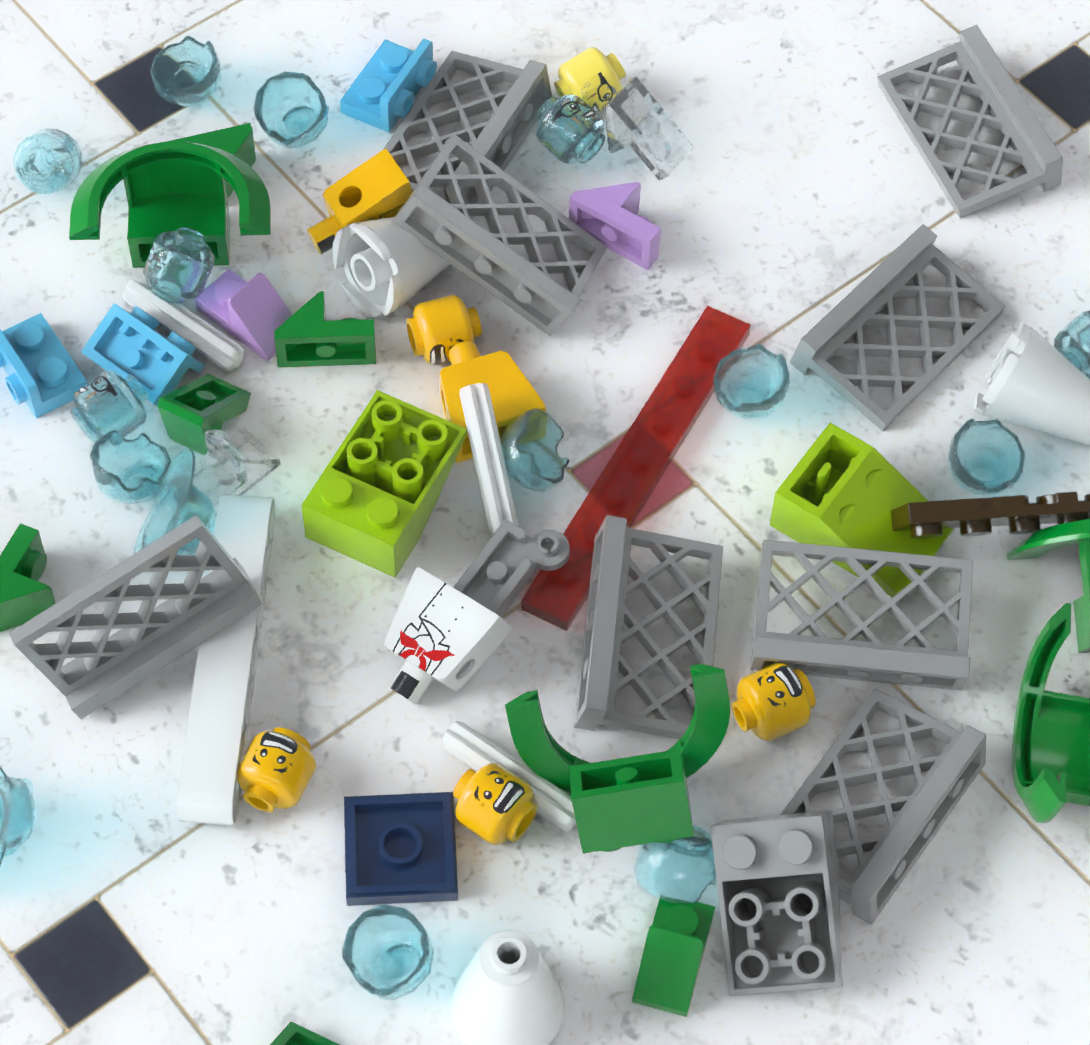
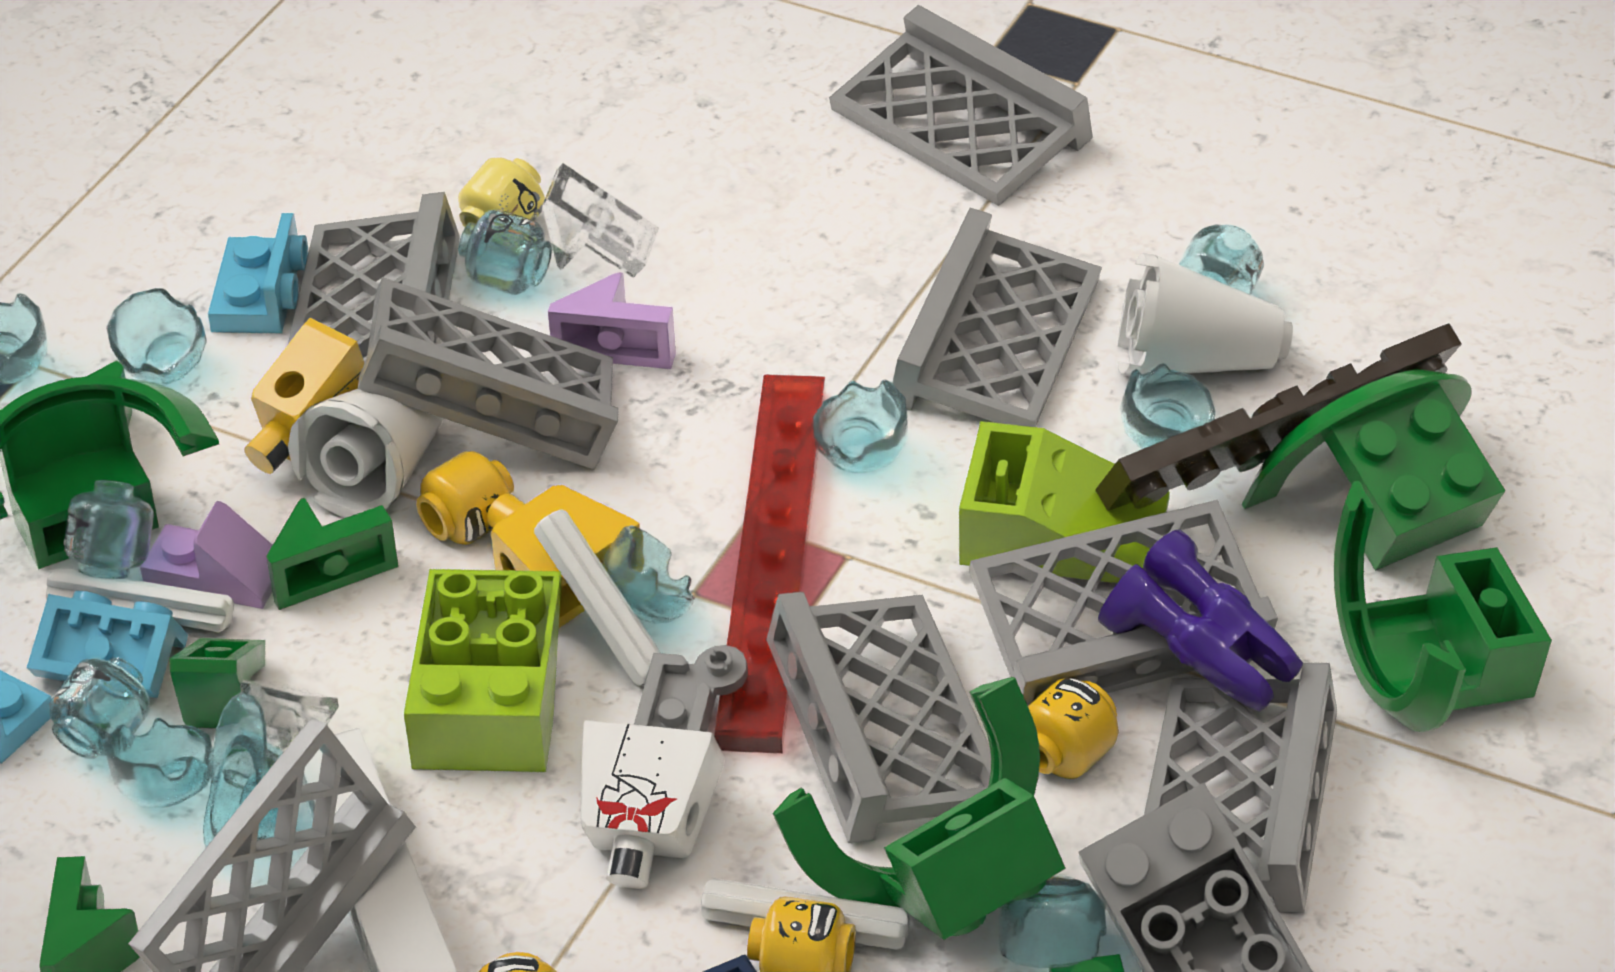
camera: 20 degrees left, 15 degrees down
(908, 683) = (1213, 645): none -> dark purple piece

